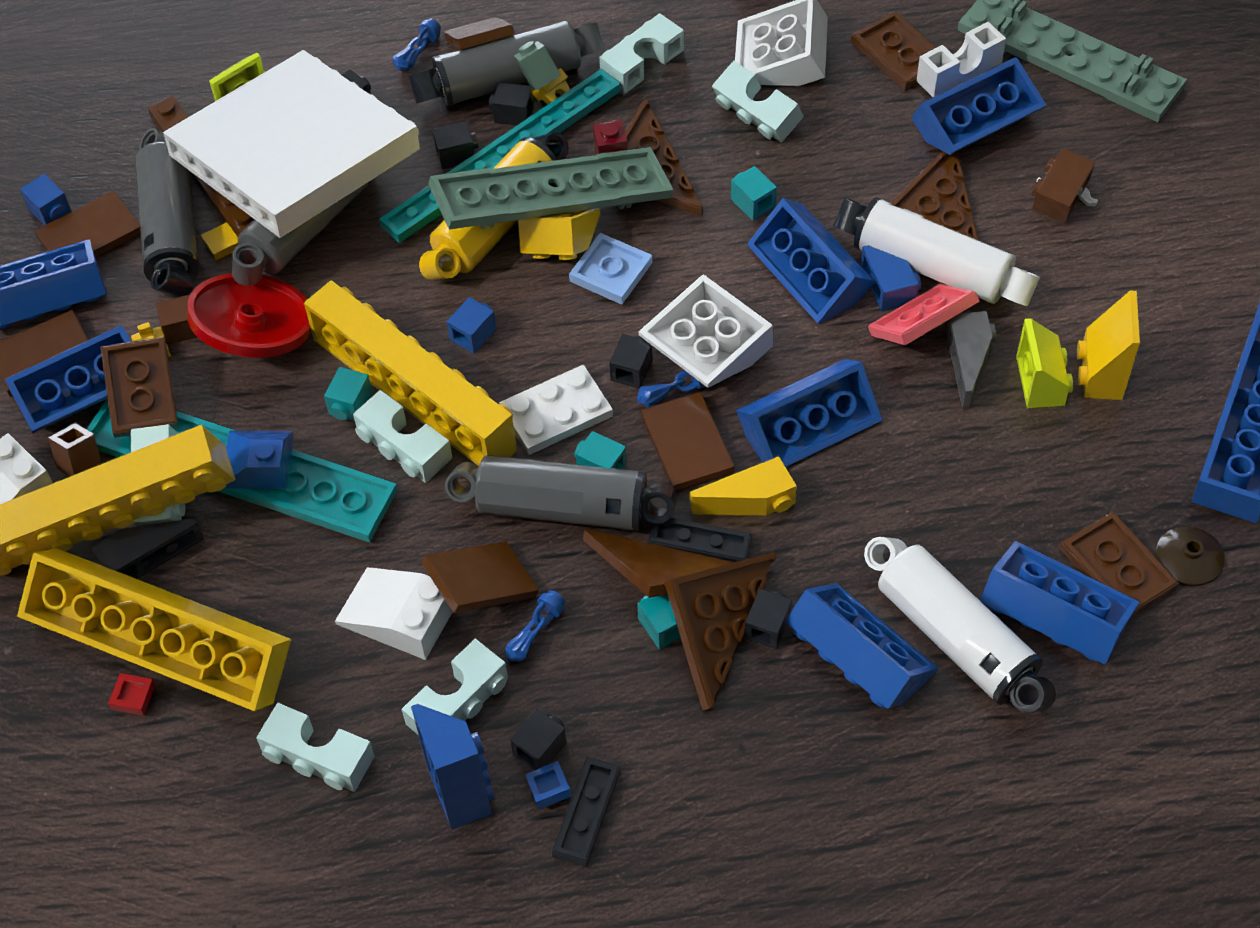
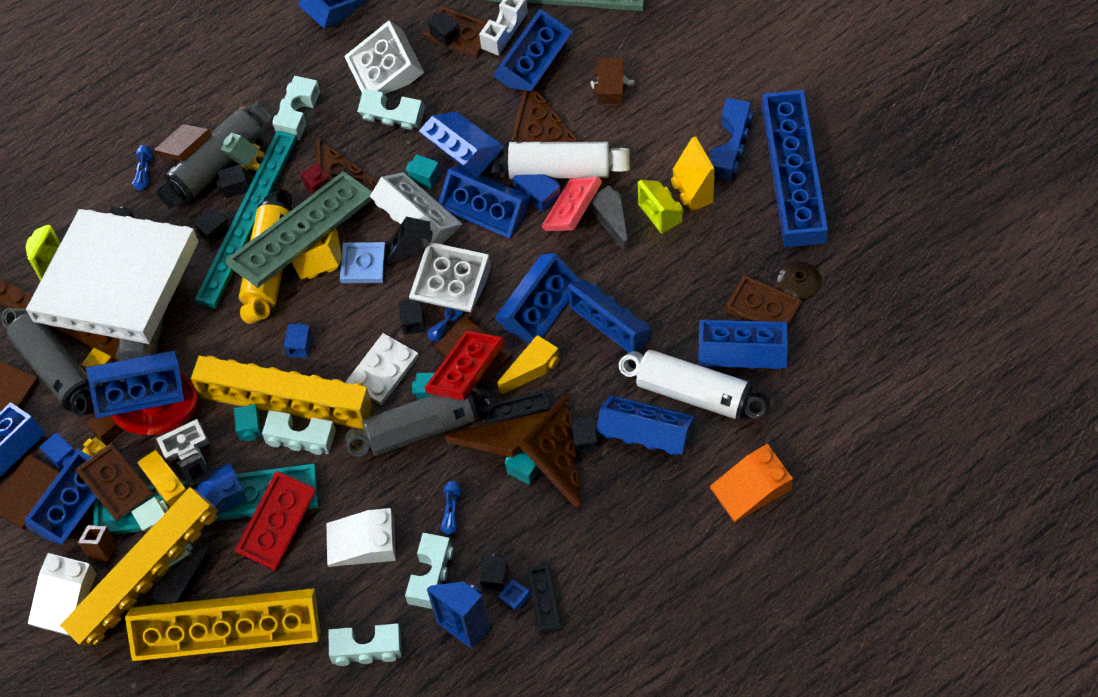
camera: 25 degrees left, 5 degrees up
(103, 316) = (57, 451): none -> blue brick
(131, 694) = (232, 670): red plate -> none
(199, 403) = (162, 478): none -> yellow slope
(232, 278) = (135, 384): none -> blue slope
(240, 416) = (193, 469): none -> black brick
(254, 384) = (183, 441): none -> white brick
(303, 531) = (275, 520): none -> red tile
(479, 576) = (402, 494): reddish brown tile -> none
(657, 449) = (464, 365): none -> red tile
(681, 260) = (408, 239): none -> black slope
(714, 231) = (404, 198): none -> white slope
(820, 173) = (461, 141): none -> blue slope
(879, 35) = (444, 28): none -> black brick
(891, 477) = (608, 316): none -> blue slope
(968, 800) = (752, 483): none -> orange slope
(1167, 349) = (734, 119): none -> blue arch

